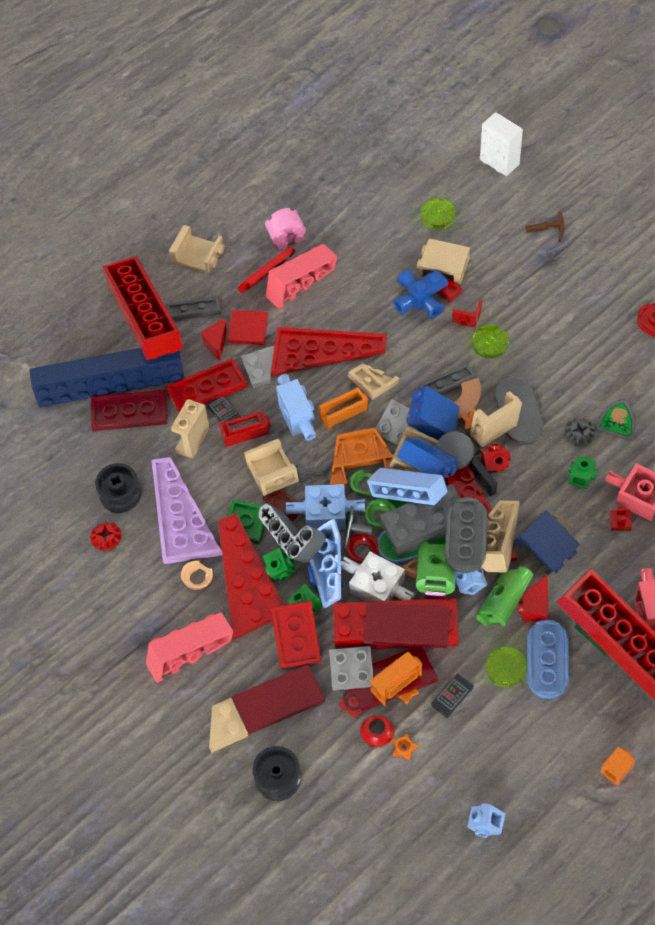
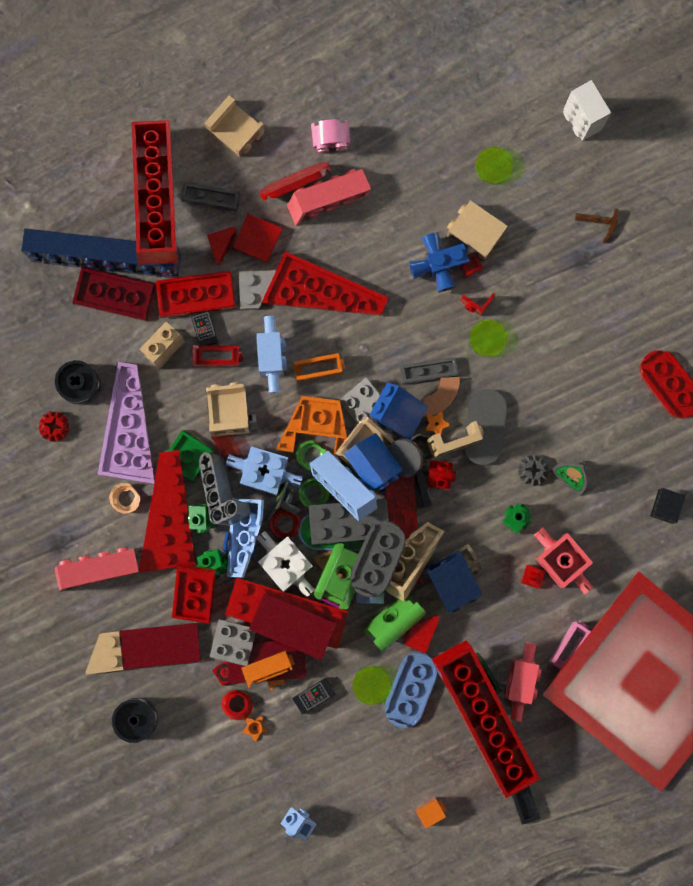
camera: 15 degrees right, 25 degrees up
(372, 380) = (357, 345): tan wing -> none

